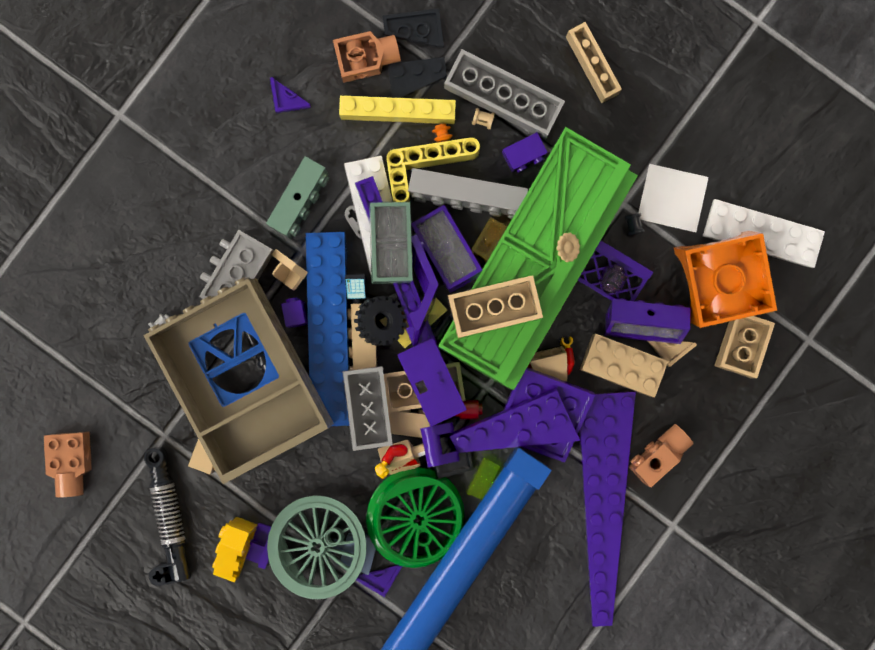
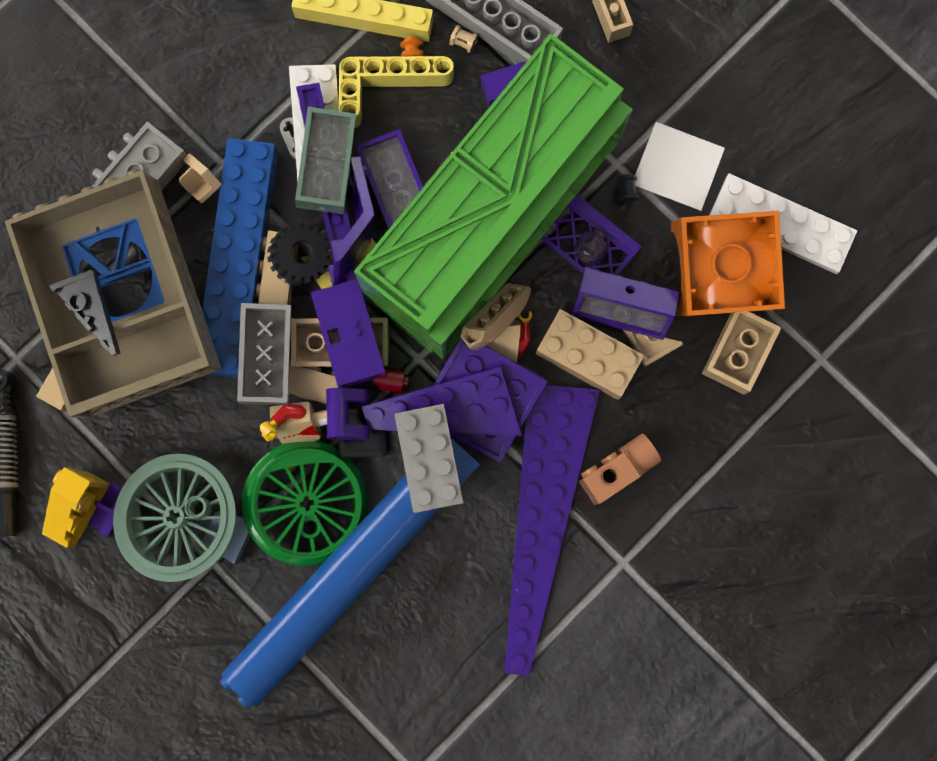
camera: 10 degrees right, 5 degrees down
(222, 391) = (86, 299): none -> wing
(295, 313) = (197, 231): dark purple brick -> none
(303, 186) = (226, 96): sand green brick -> none
(356, 288) = (277, 210): slope -> none
(380, 580) = (249, 575): dark purple tile -> none
(465, 192) = (415, 114): light grey brick -> none
(482, 478) = (391, 470): clear neon green panel -> none
(495, 306) = (429, 230): tan brick -> none
(512, 474) = (428, 458): none -> light grey brick
(548, 350) = (495, 316): none -> tan brick
(568, 247) = (531, 173): tan piece -> none

